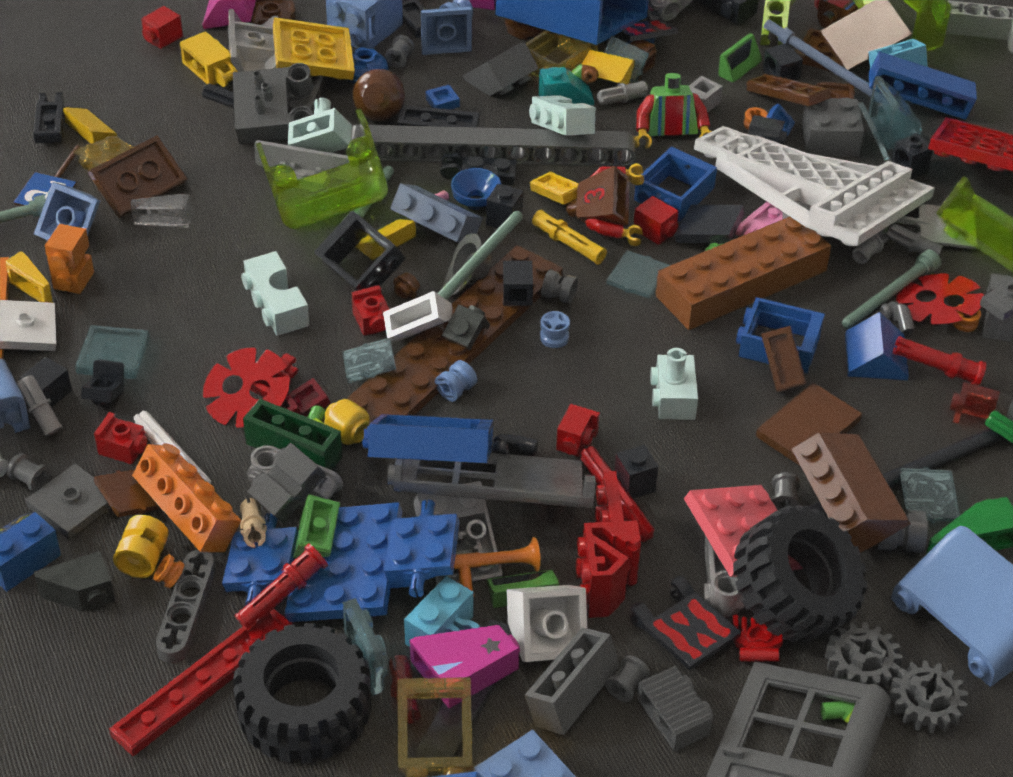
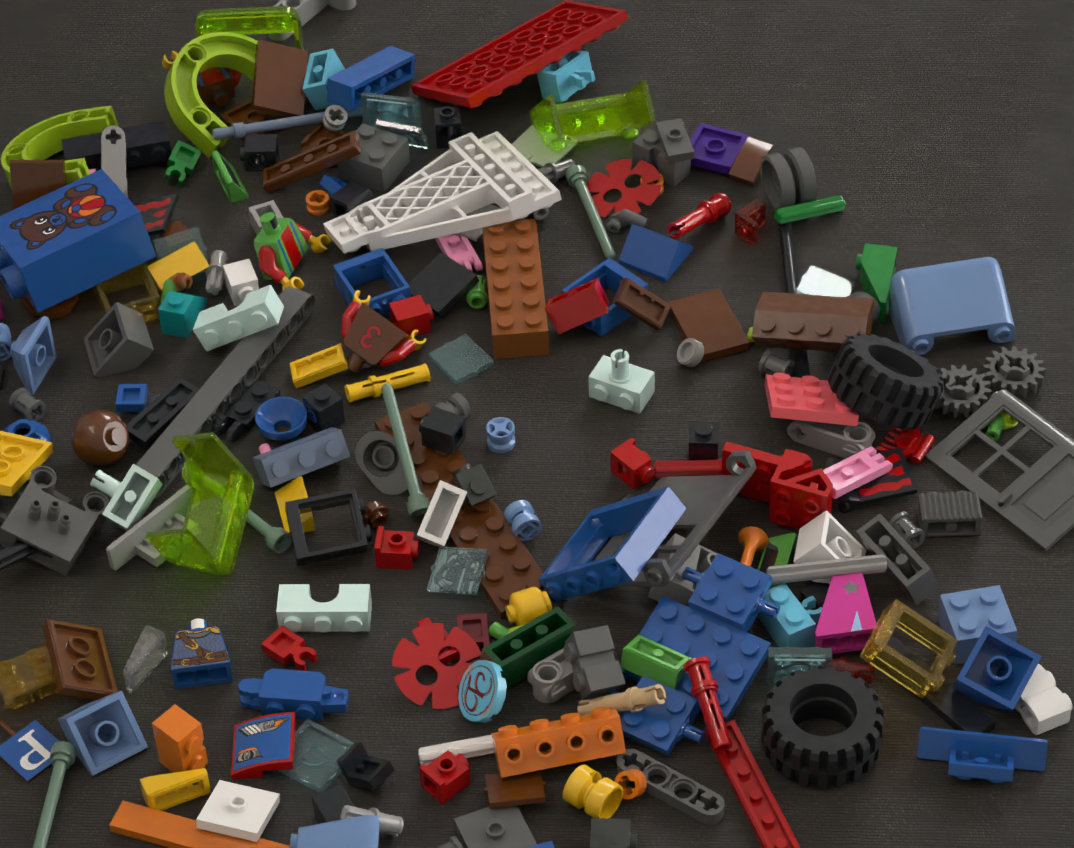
camera: 60 degrees left, 0 degrees up
(105, 316) = (263, 745): none -> slope
(166, 310) = (293, 692): none -> blue hinge
(182, 241) = (200, 657): none -> torso
(220, 287) = (287, 647): none -> red plate
(222, 423) = (482, 691): none -> medium azure tile
(506, 617) = (827, 568): none -> light grey axle
(620, 109) = (240, 280): none -> white brick
(669, 599) = (857, 471): none -> bright pink hinge
(735, 26) = (182, 161): none -> green plate
(740, 312) = (577, 306): none -> red hinge
(755, 421) = (690, 352): none -> light grey tile
(863, 83) = (332, 111): none -> light grey bush

